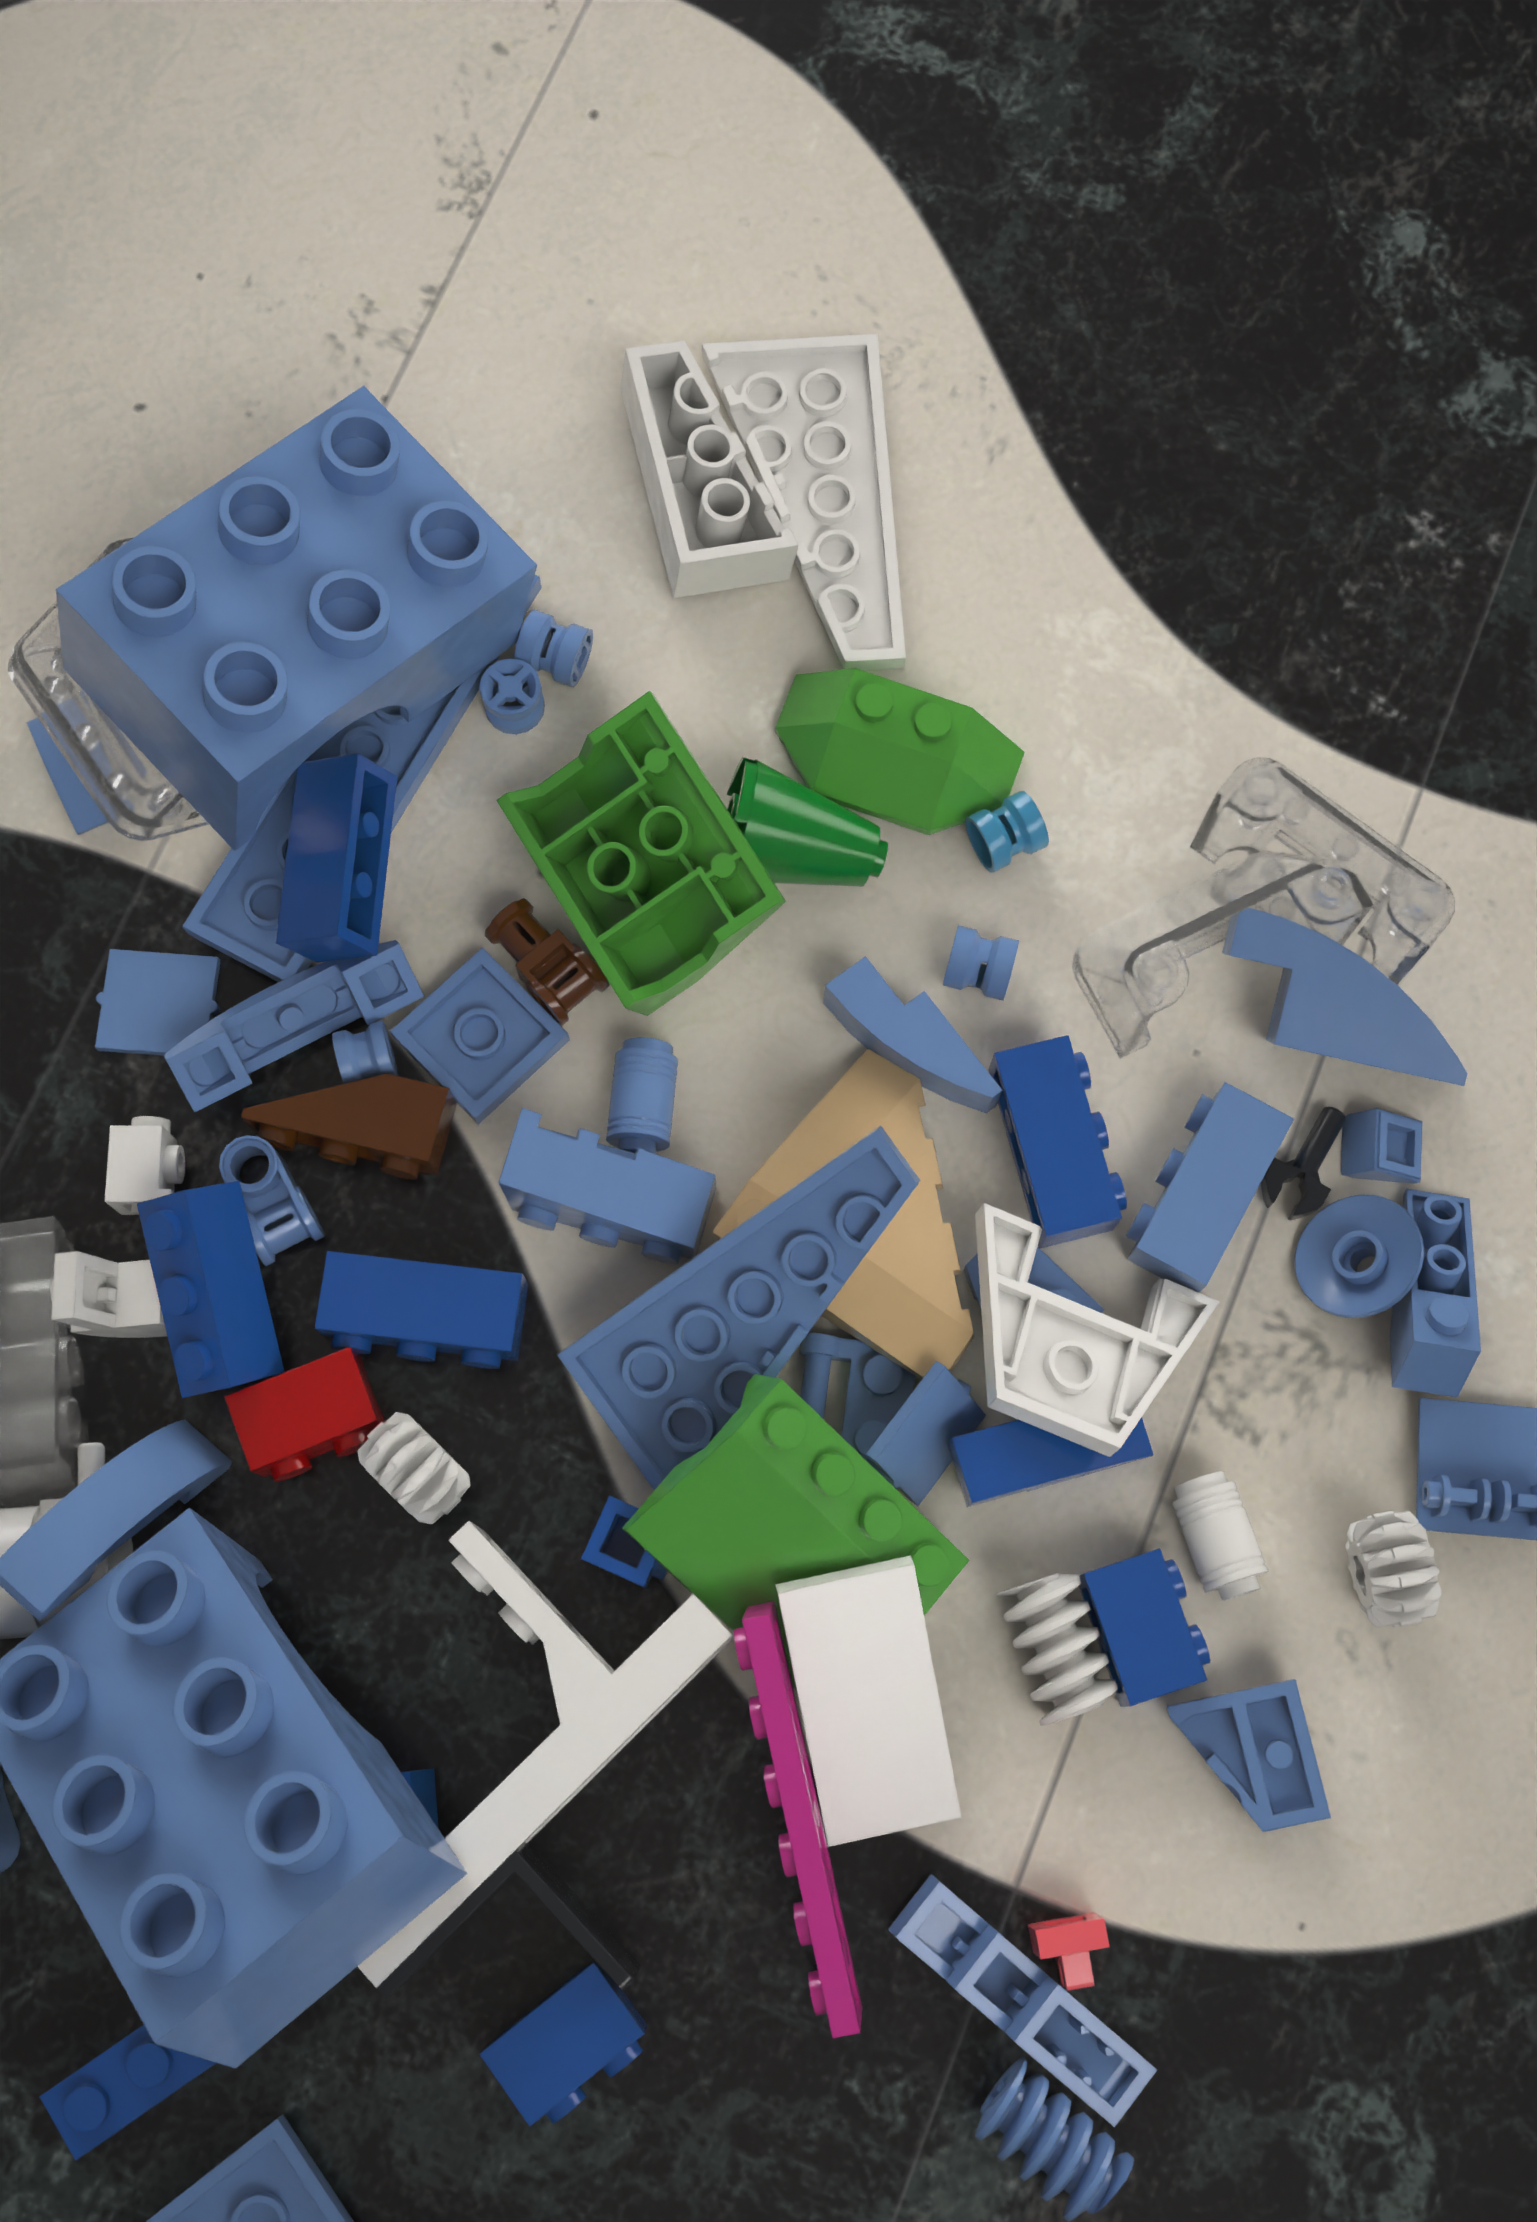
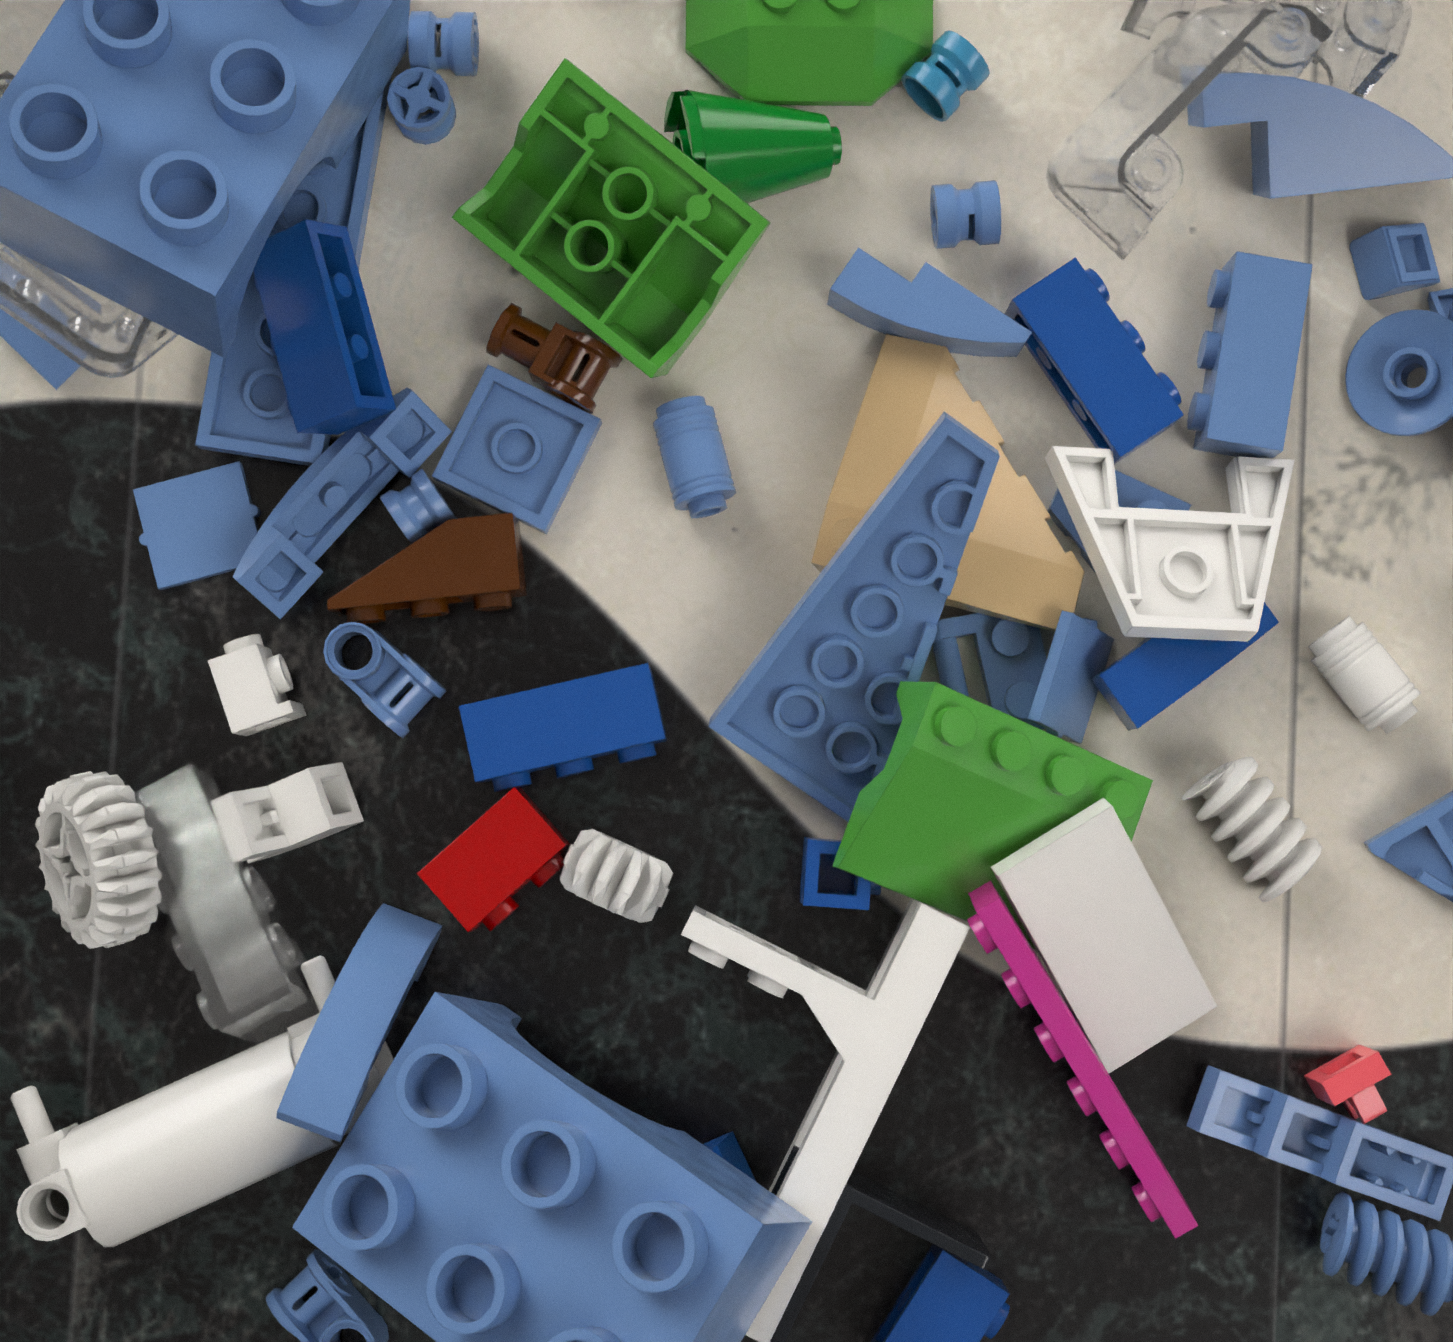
camera: 15 degrees left, 10 degrees up
(210, 1288) = (364, 779): blue brick -> none
(606, 1191) = (697, 557): medium blue wedge -> none
(1144, 1627) = (1326, 781): blue brick -> none
(1305, 1166) = (1330, 303): black bar -> none

